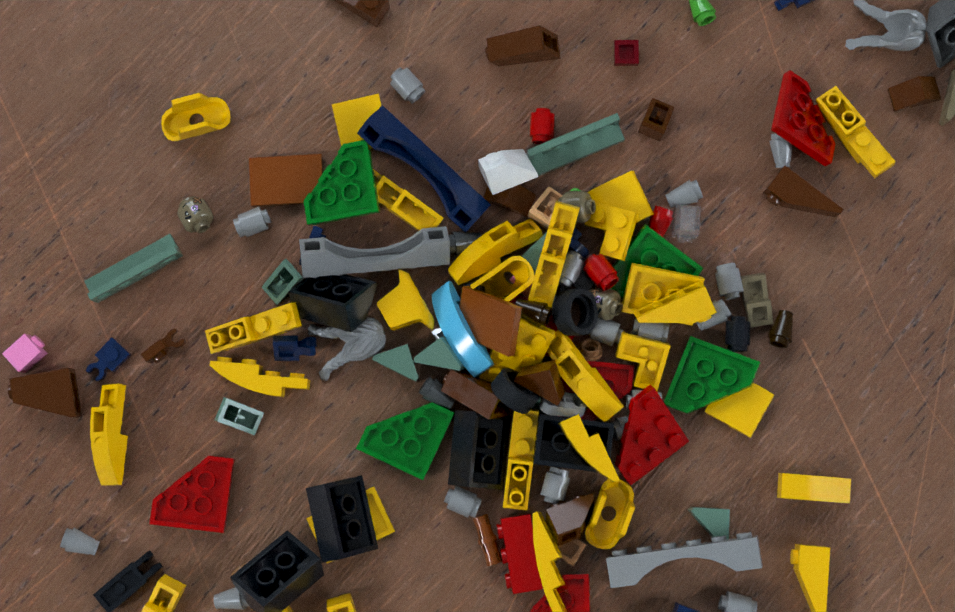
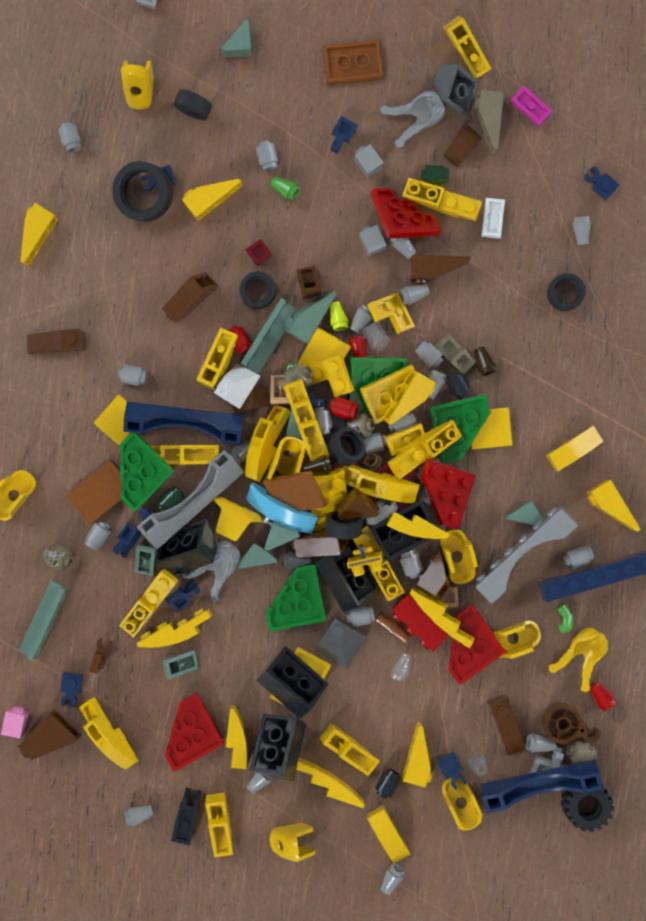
camera: 35 degrees left, 5 degrees up
(240, 538) = (237, 739): none -> yellow slope
(280, 246) = (128, 538): none -> dark blue plate
(354, 237) = (170, 498): none -> clear green brick
(421, 515) = (340, 642): none -> dark grey slope
(466, 589) = (401, 668): none -> clear cone
(499, 441) = (374, 559): none -> yellow hips
(506, 129) = (218, 359): none -> yellow slope
(599, 71) = (253, 276): none -> black tyre
(625, 155) = (306, 320): none -> sand green slope
(658, 372) = (423, 447): none -> yellow slope
(660, 177) = (337, 317): none -> neon yellow cone
(725, 207) = (394, 308): none -> yellow plate
(752, 122) = (372, 240): none -> light grey brick
(755, 206) = (413, 293): none -> light grey cone
(805, 39) = (368, 160): none -> light grey brick
(865, 102) = (435, 174): none -> clear green brick
(894, 188) = (493, 218): none -> white plate
(937, 314) = (580, 292): none -> black tyre

